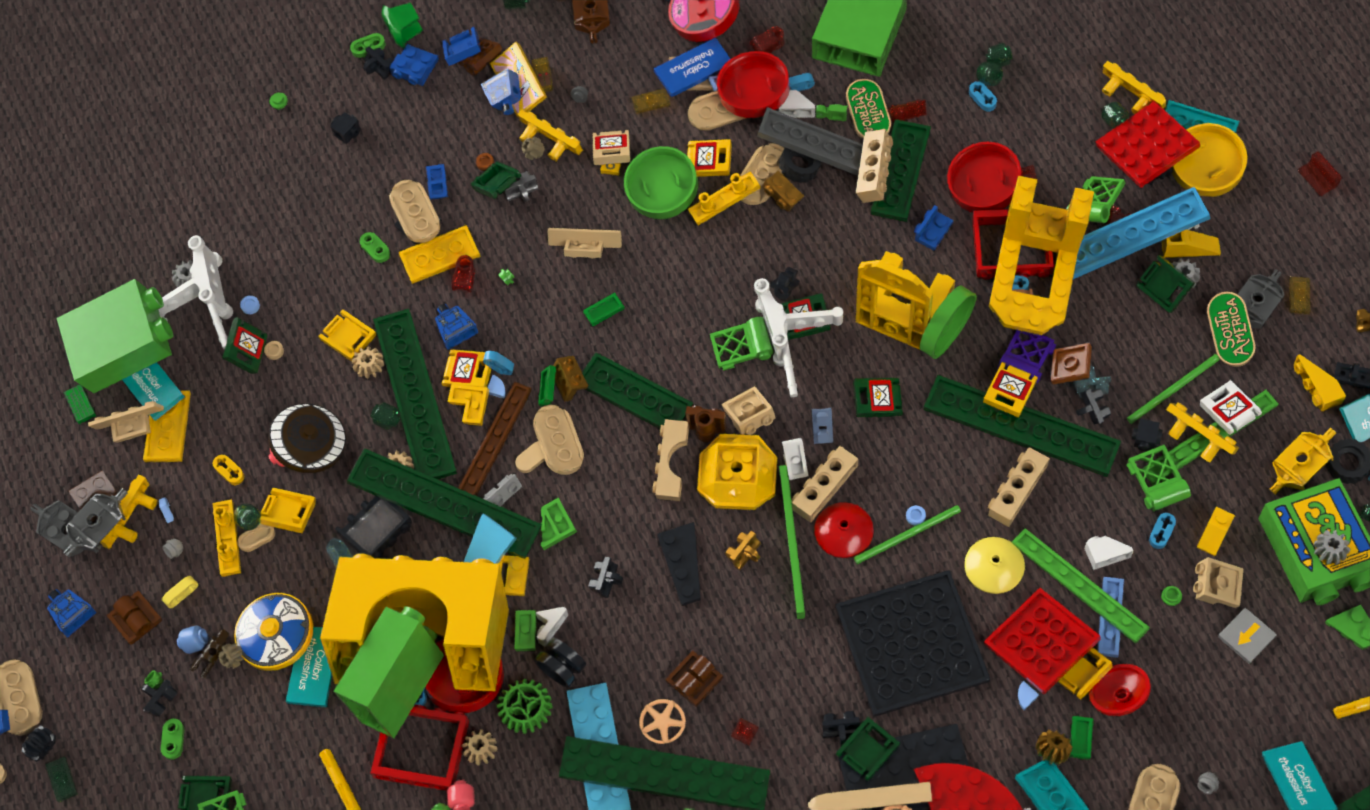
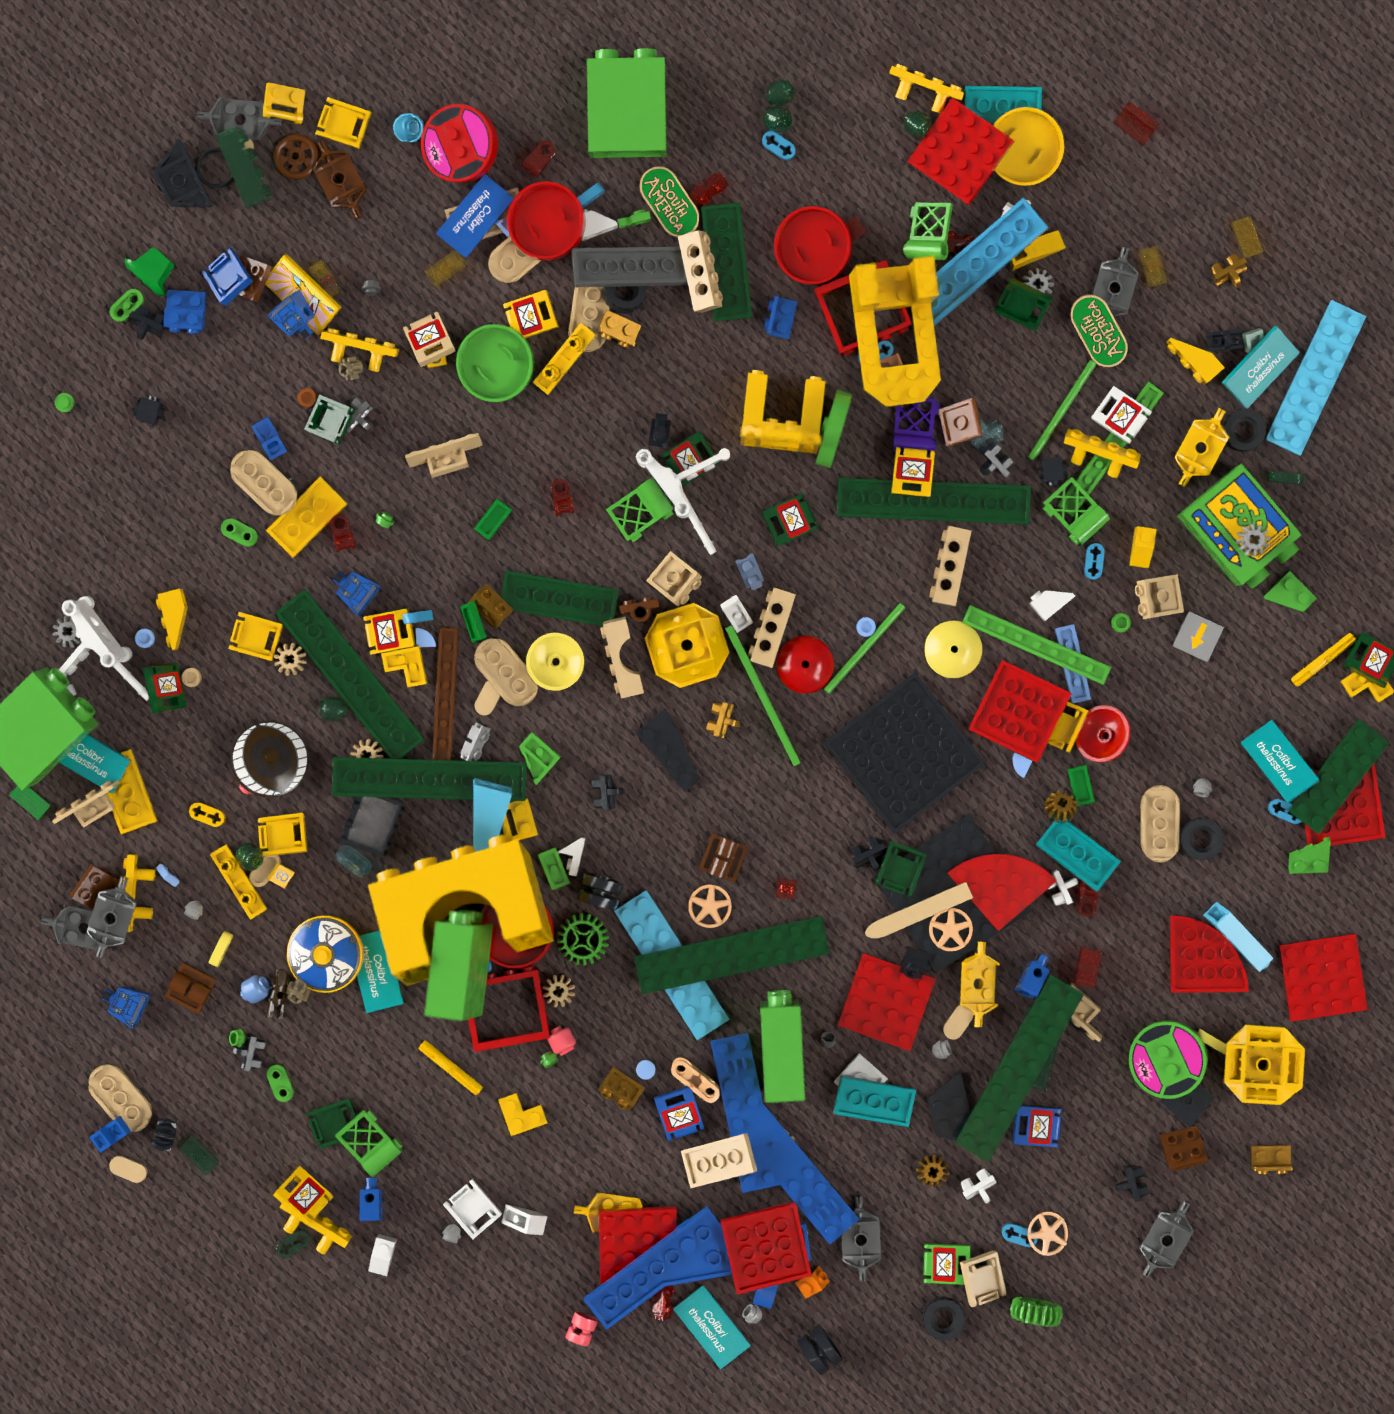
camera: 25 degrees left, 25 degrees up
(268, 545) = (281, 875): none -> yellow tile
(286, 289) = (174, 612): none -> yellow slope
(607, 431) = (540, 660): none -> light yellow dish
(673, 311) = (562, 499): none -> clear red piece

